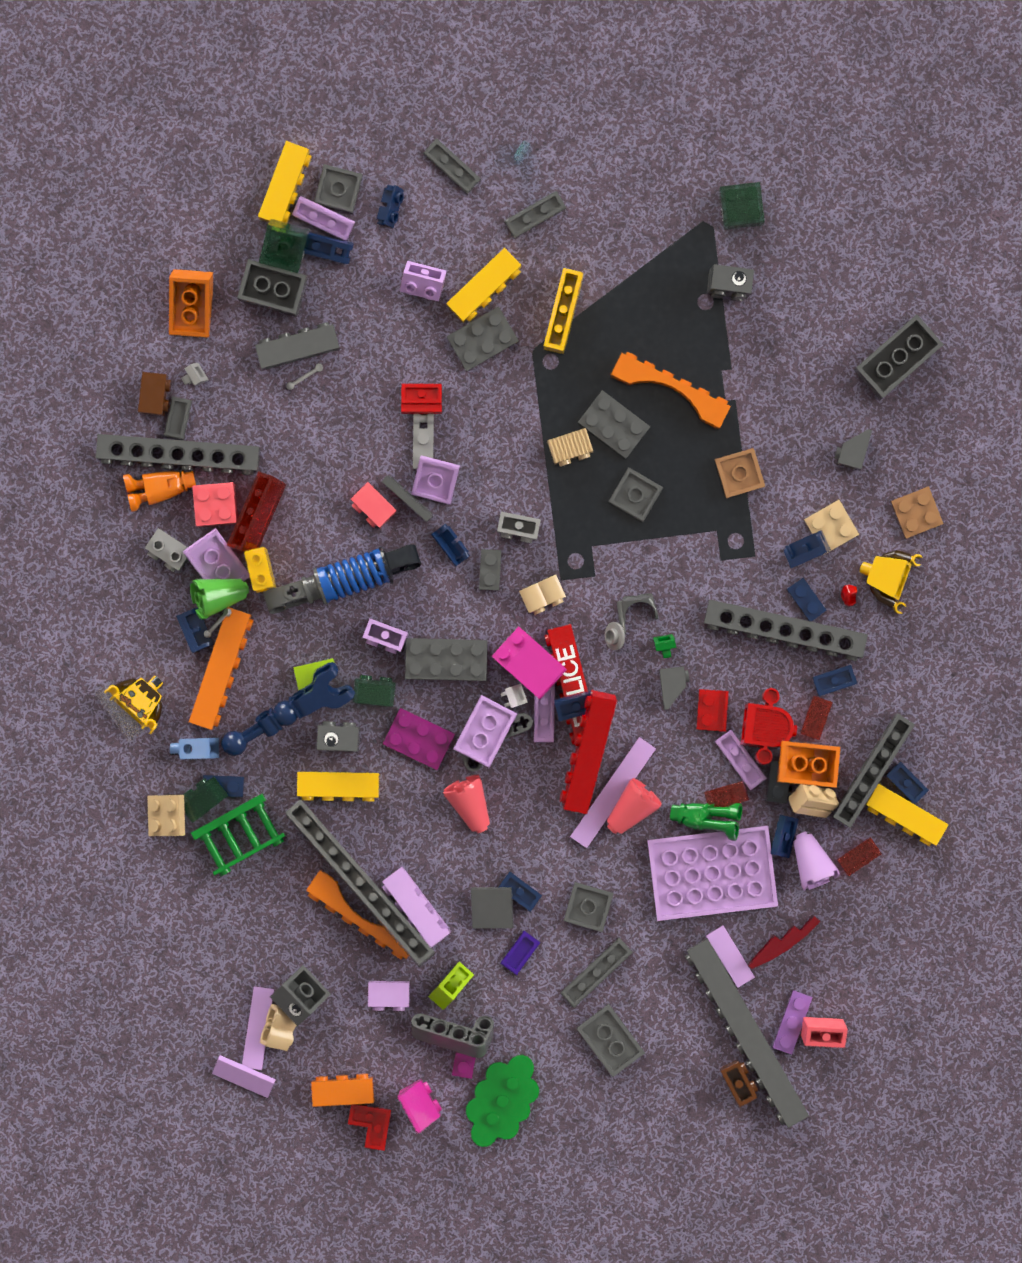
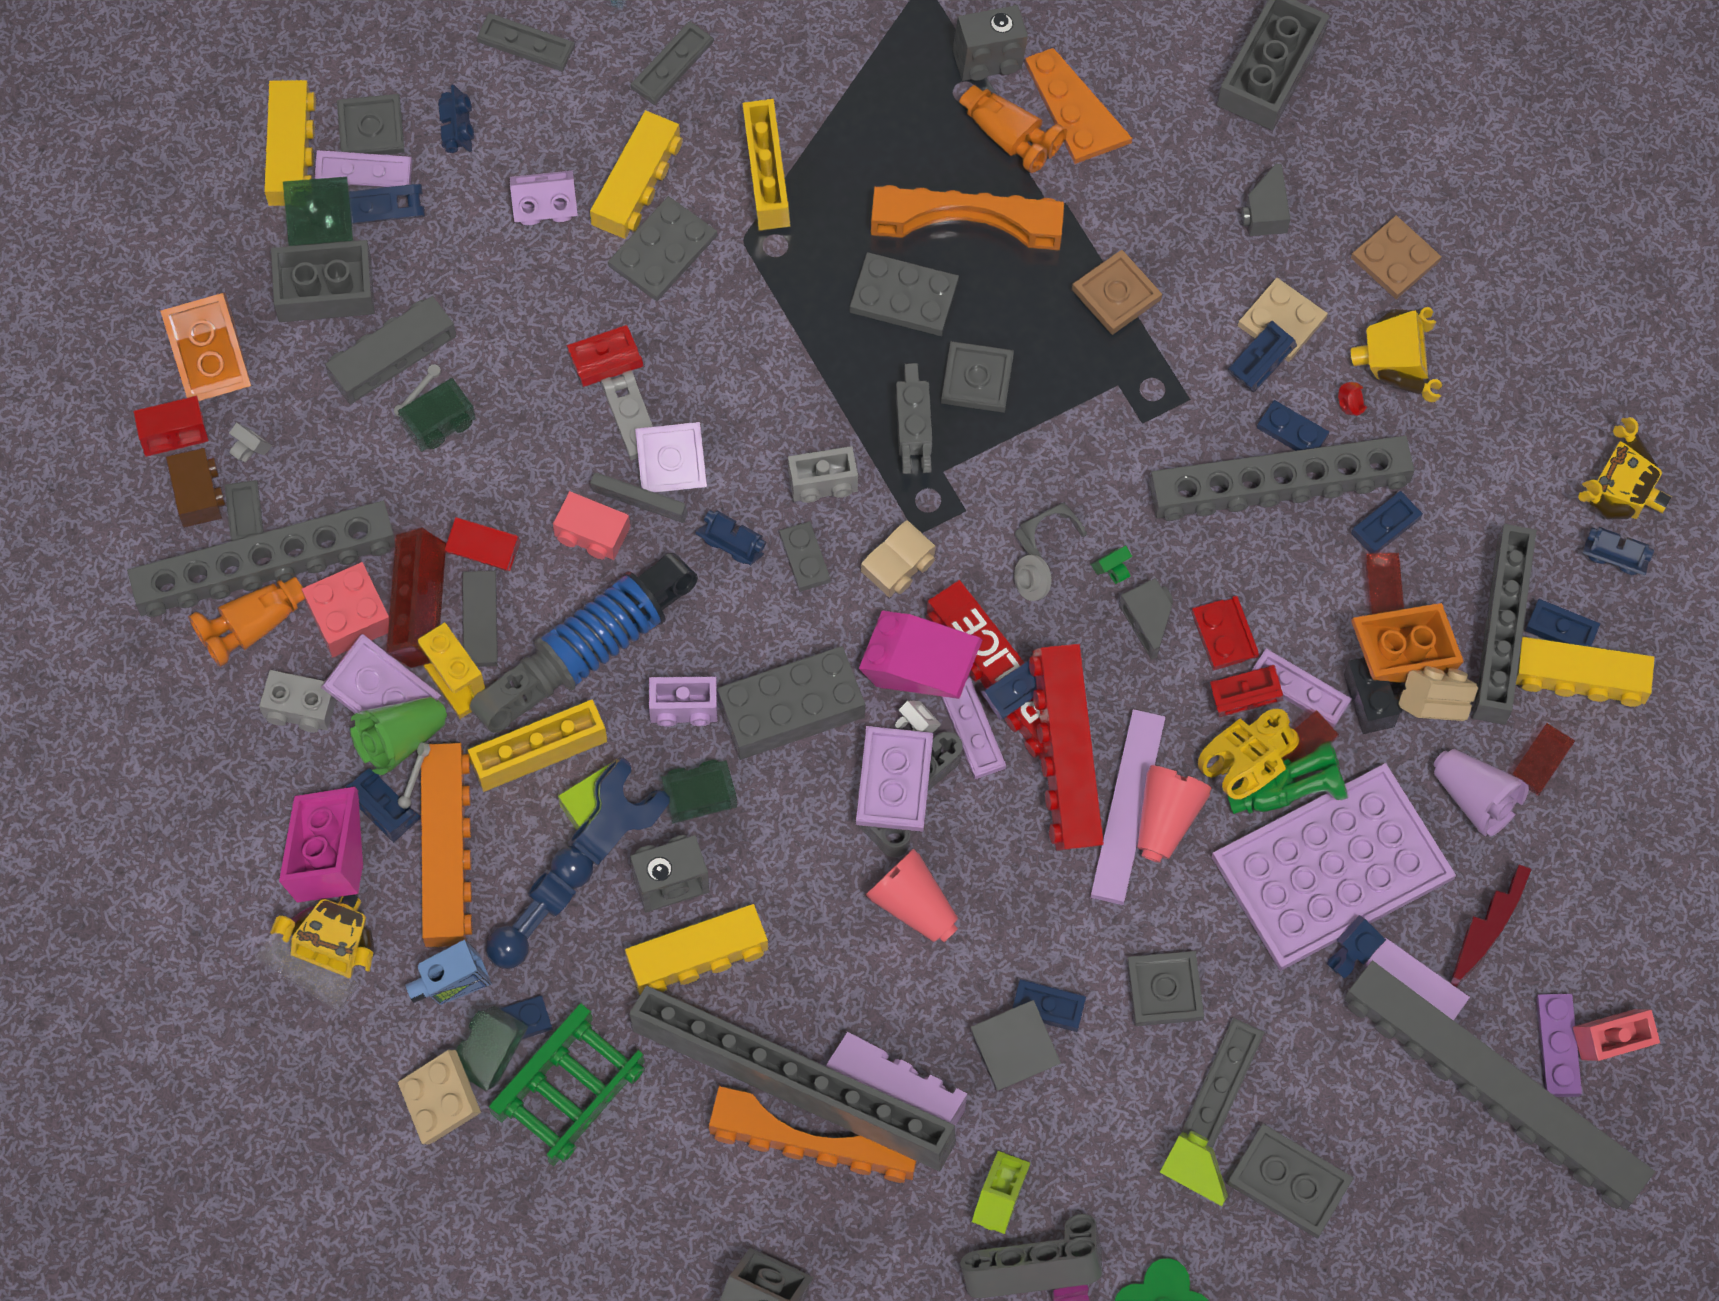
camera: 25 degrees left, 20 degrees down
(152, 645) = (323, 846): none -> dark pink slope
(153, 346) = (170, 426): none -> red hinge
(289, 536) = (480, 617): none -> dark grey tile
(293, 631) = (537, 745): none -> yellow brick
(306, 493) = (482, 544): none -> red hinge
(309, 400) = (437, 415): none -> clear green brick
(388, 994) = (907, 1244): lavender brick -> none
(418, 739) = (795, 838): magenta plate -> none
(520, 952) = (1088, 1101): dark purple tile -> none
(561, 1015) = (1196, 1167): none -> lime slope
(570, 447) = (853, 342): tan brick -> none
(585, 511) = (913, 419): none -> dark grey hinge
(703, 792) = (1248, 756): none -> yellow piece
(705, 923) = (1358, 944): none -> dark blue plate
(707, 752) = (1247, 691): none -> red hinge
(721, 339) = (1013, 127): none -> orange piece
(736, 1079) = (1521, 1165): reddish brown brick -> none
(766, 726) = (1316, 619): red piece -> none
(767, 344) = (1075, 107): none -> orange wing
(784, 836) = (1417, 770): dark blue plate -> none
(953, 745) = (1629, 558): none -> dark blue hinge
(985, 709) = (1627, 479): none -> torso

